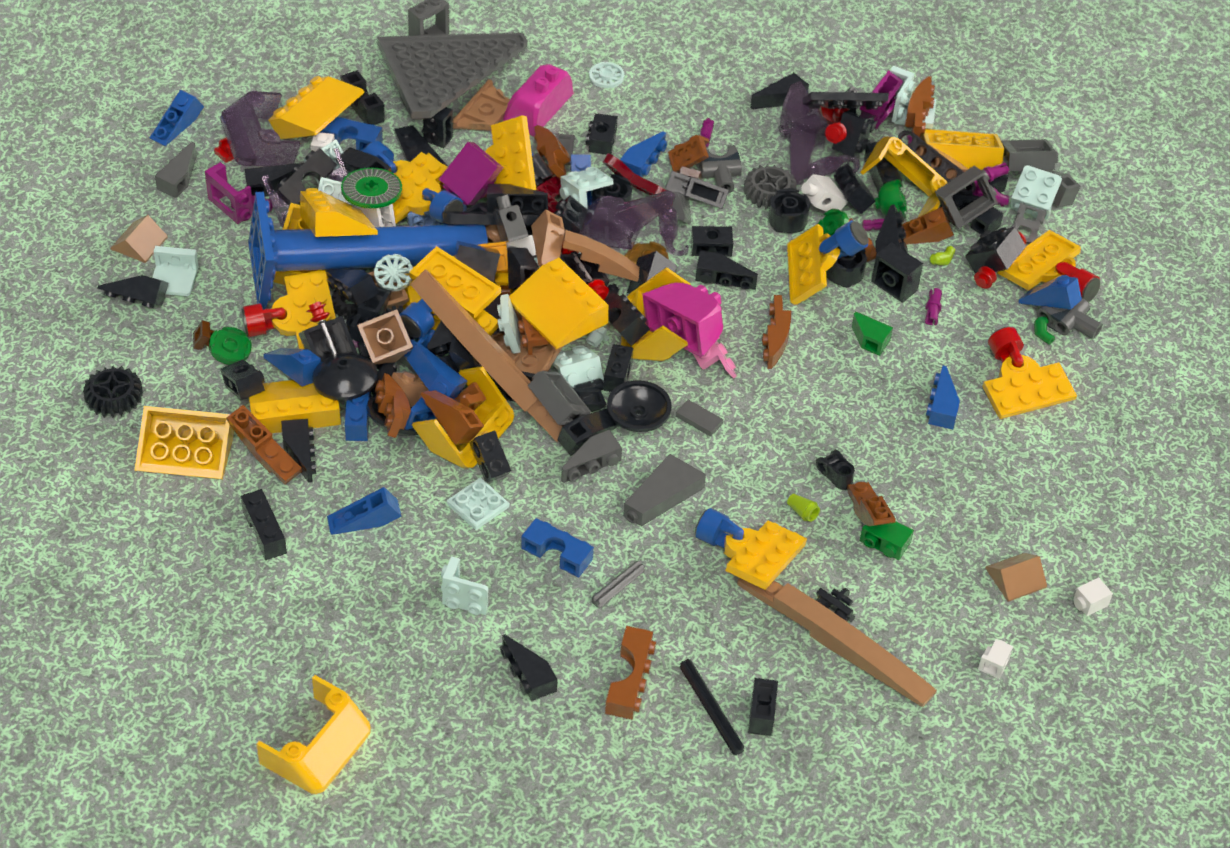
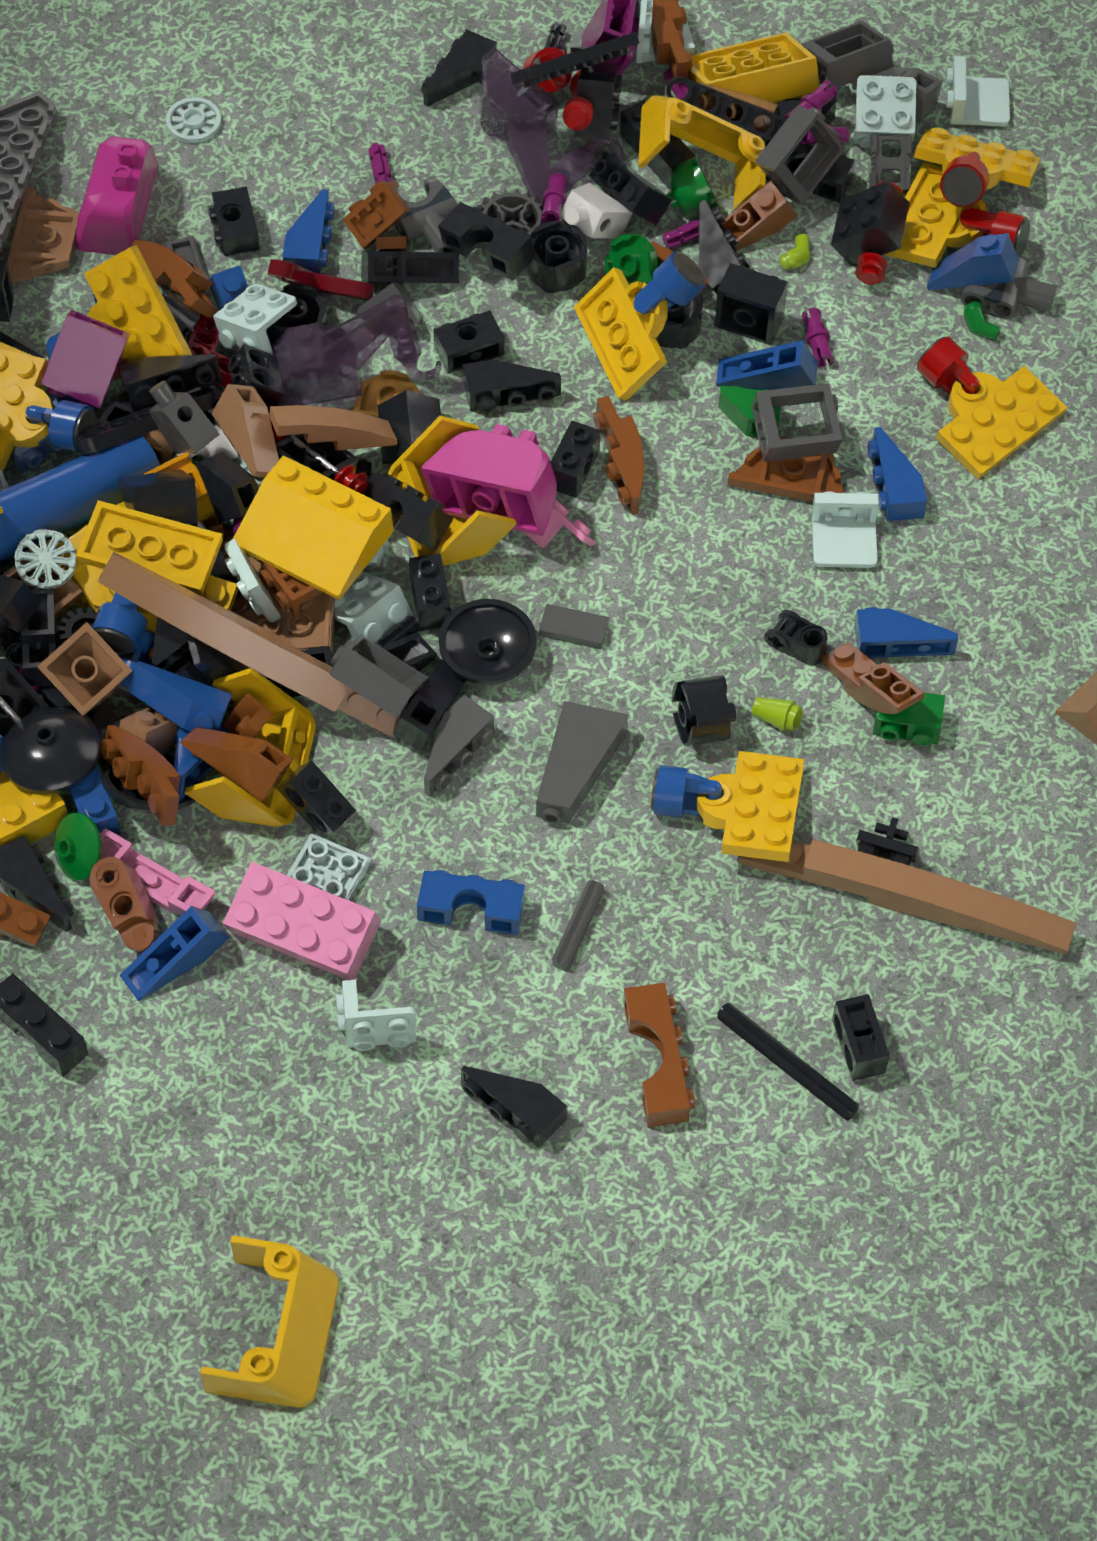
camera: 20 degrees left, 10 degrees up
(336, 435) = (77, 845): none -> green dish
(348, 475) = (141, 924): none -> dark orange piece
(367, 466) = (162, 885): none -> bright pink slope
(448, 521) = (302, 921): none -> bright pink brick
(744, 324) = (575, 457): none -> black brick
(754, 191) = (507, 248): none -> black arch
(754, 488) = (703, 710): none -> black brick
(801, 177) = (554, 198): none -> magenta pin
(880, 375) = (789, 477): none -> dark orange wing
(891, 360) = (767, 431): none -> dark grey window
(897, 417) = (844, 529): none -> light aqua bracket
(899, 314) = (770, 368): none -> blue slope
(902, 488) = (895, 634): none -> blue slope
(1073, 236) = (973, 165): none -> yellow plate
(1101, 205) = (976, 98): none -> light aqua bracket

